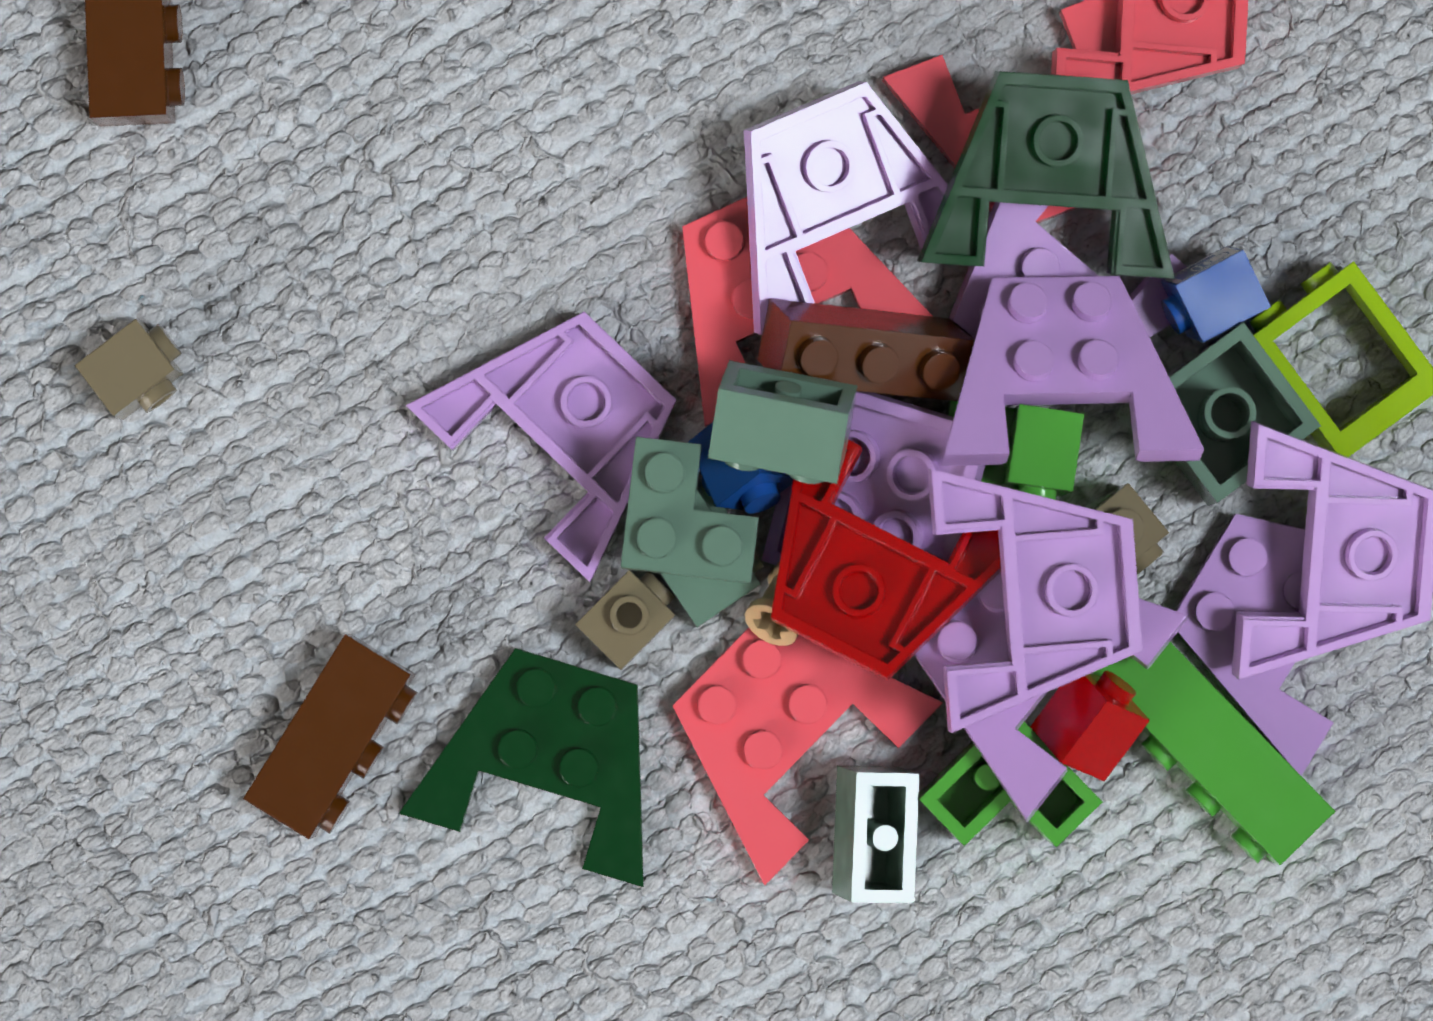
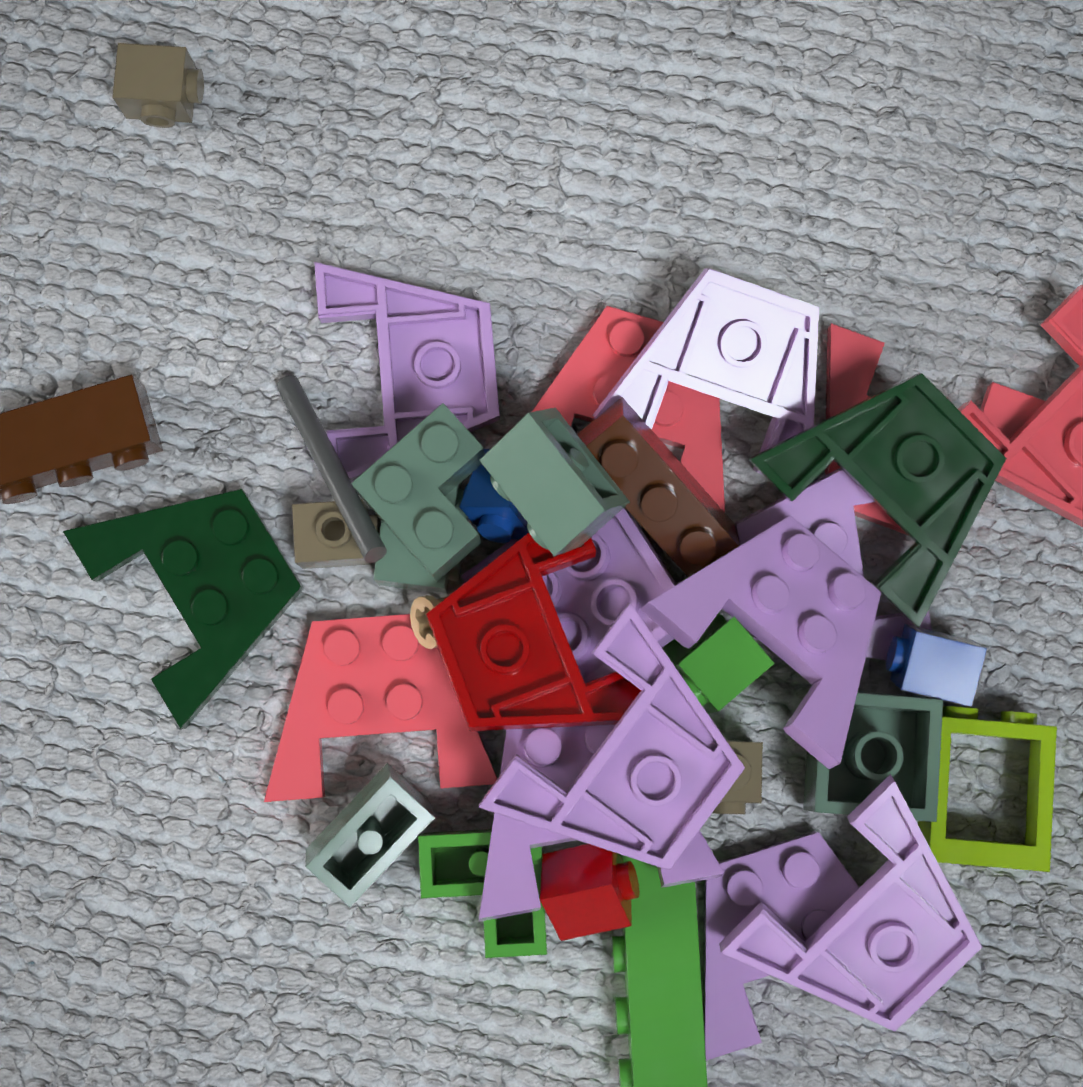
camera: 35 degrees right, 5 degrees down
(579, 566) = (331, 469): none -> dark grey bar

